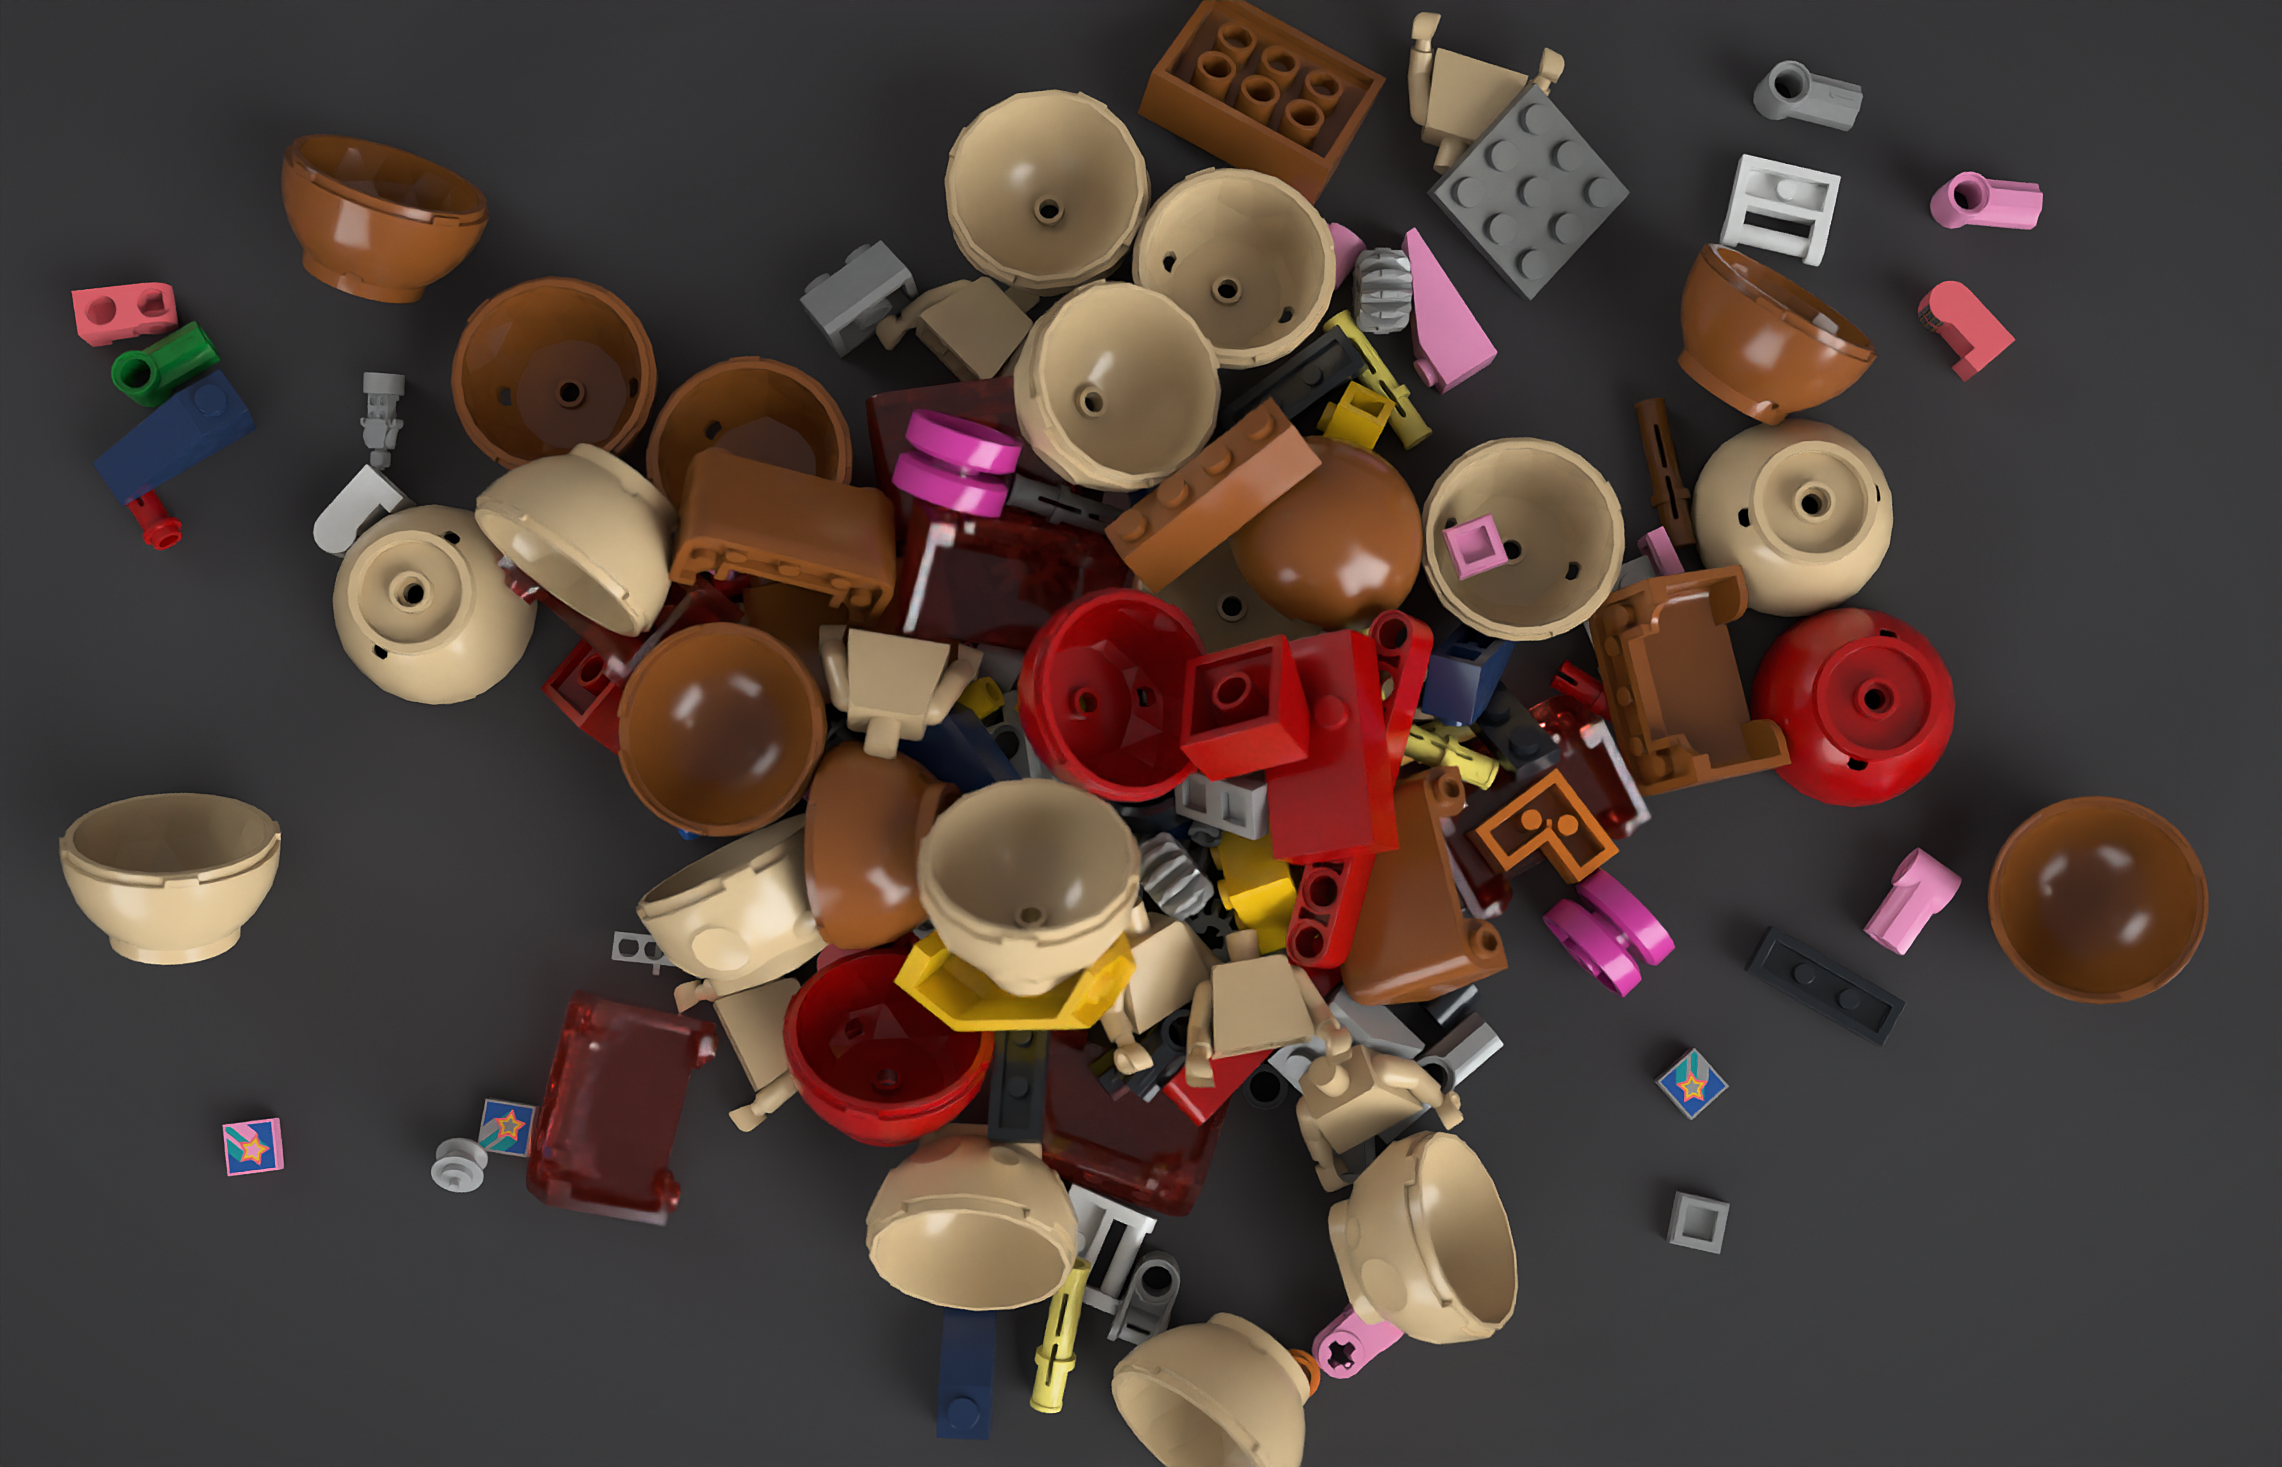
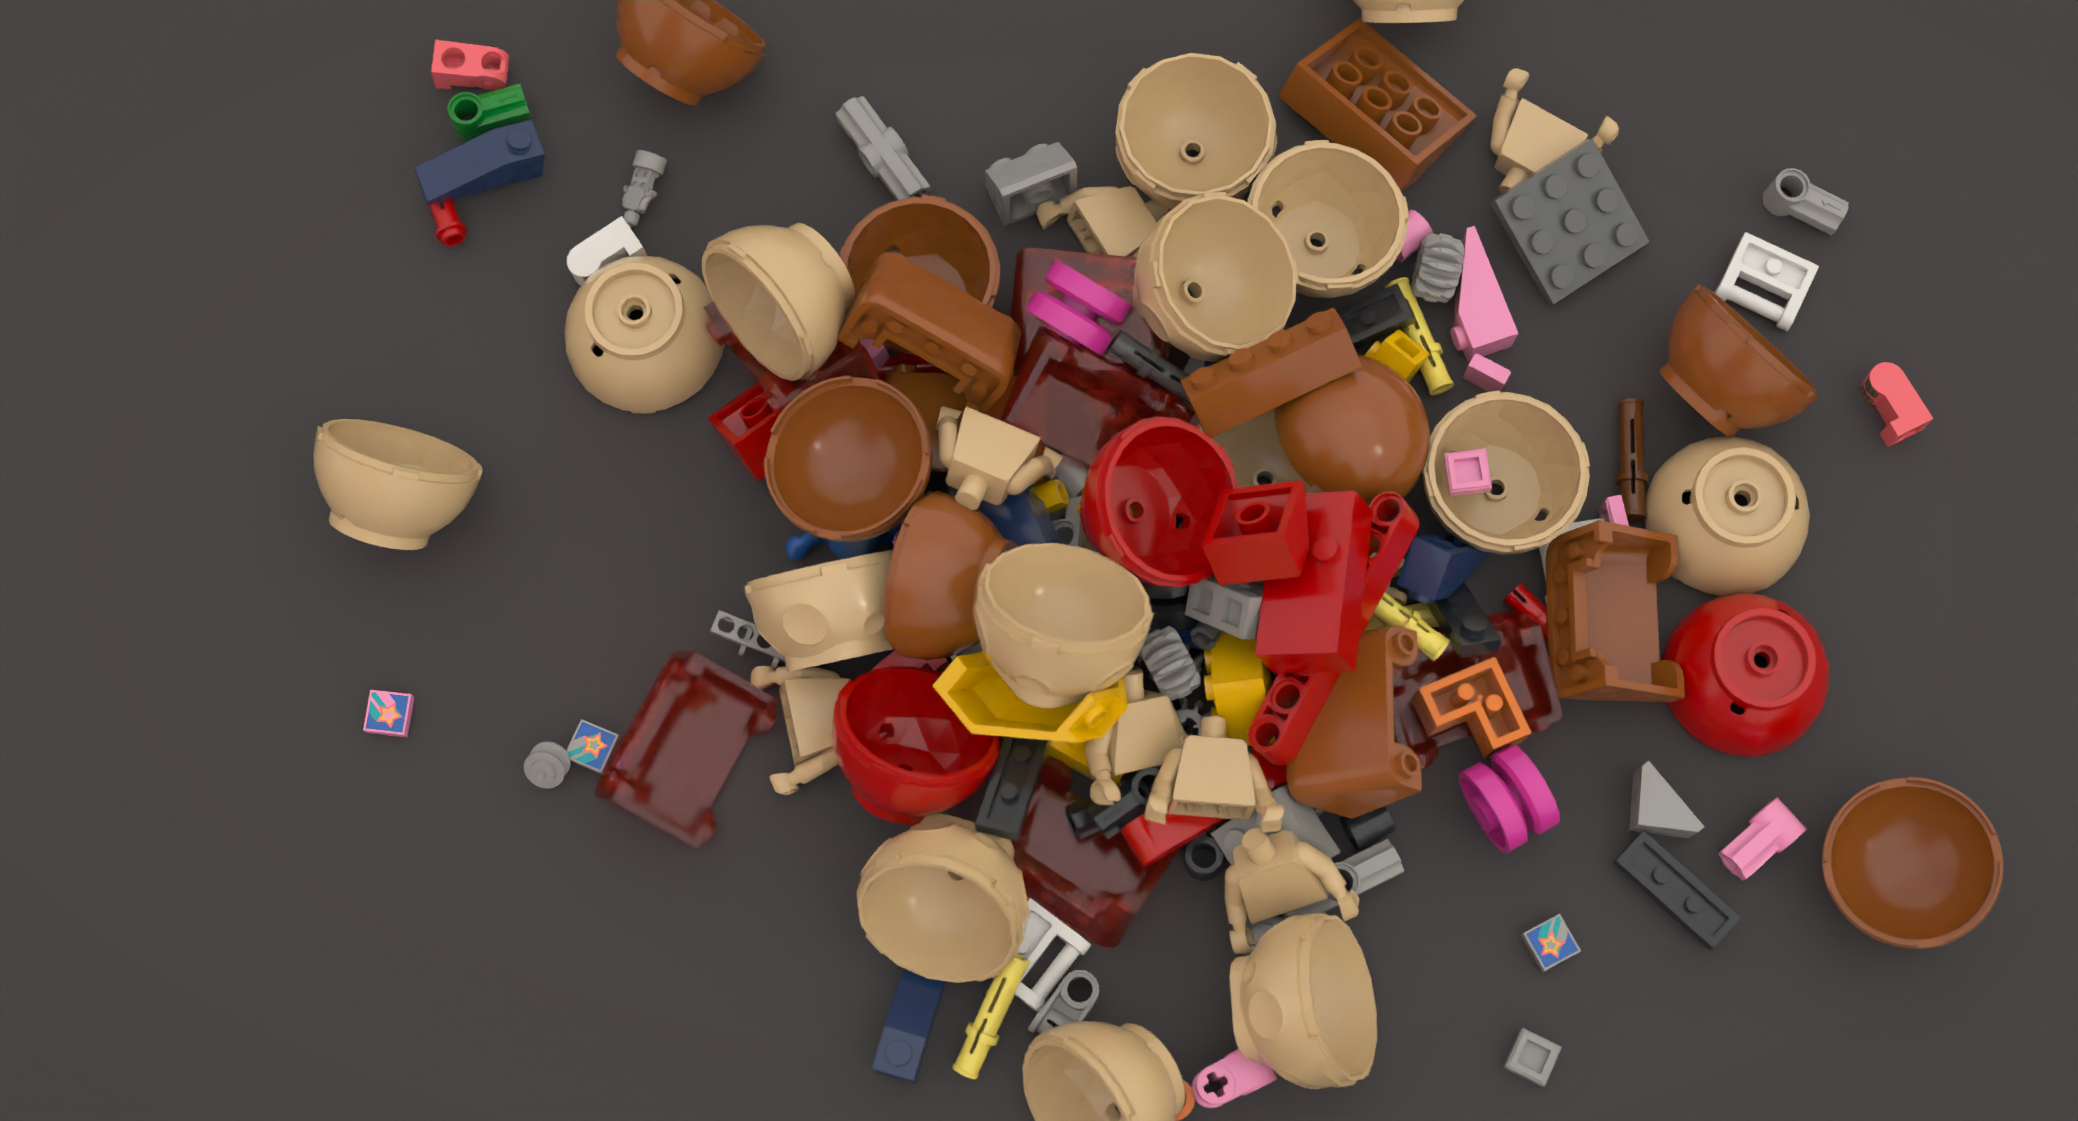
camera: 15 degrees right, 10 degrees down
(537, 345) = (781, 157): dark orange piece -> none
(668, 301) = (881, 149): none -> light grey piece
(1469, 410) = (1486, 374): none -> bright pink tile
(1781, 893) = (1658, 807): none -> light grey slope
(1989, 203) = (1933, 312): bright pink piece -> none

